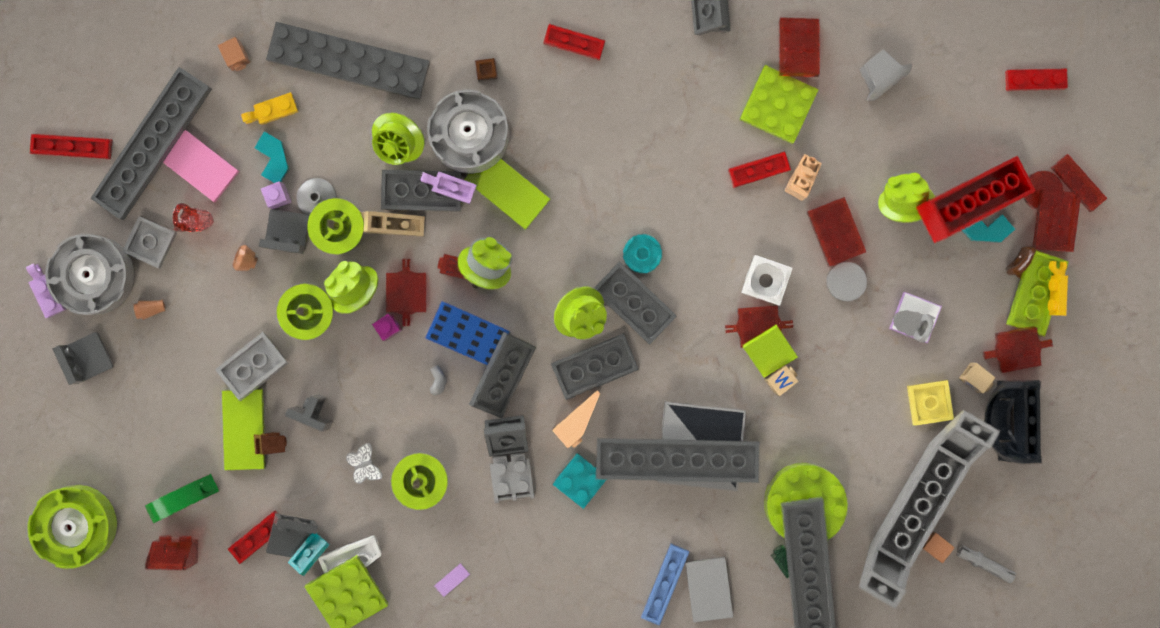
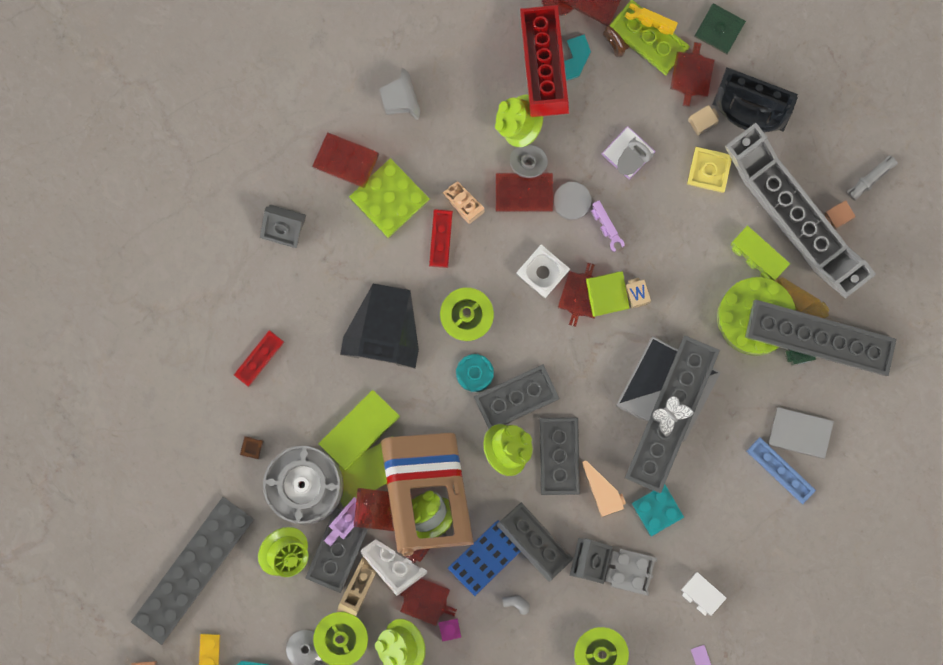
camera: 65 degrees left, 5 degrees down
(424, 248) = (391, 567): none -> white wing
(473, 215) = (373, 510): none -> clear red plate
(517, 555) = (703, 594): none -> white brick
(534, 238) = (421, 463): none -> medium nougat piece
(543, 164) = (359, 430): none -> lime tile
(650, 149) = (383, 328): none -> black wedge
(676, 459) = (671, 414): none -> animal
(695, 222) = (466, 314): none -> lime piece
(834, 326) = (607, 227): none -> lavender plate
(839, 545) = (804, 301): none -> clear yellow slope
(867, 483) = (759, 254): none -> lime brick
(875, 223) = (529, 154): none -> light grey dish
(1073, 358) = (720, 28): none -> clear green plate

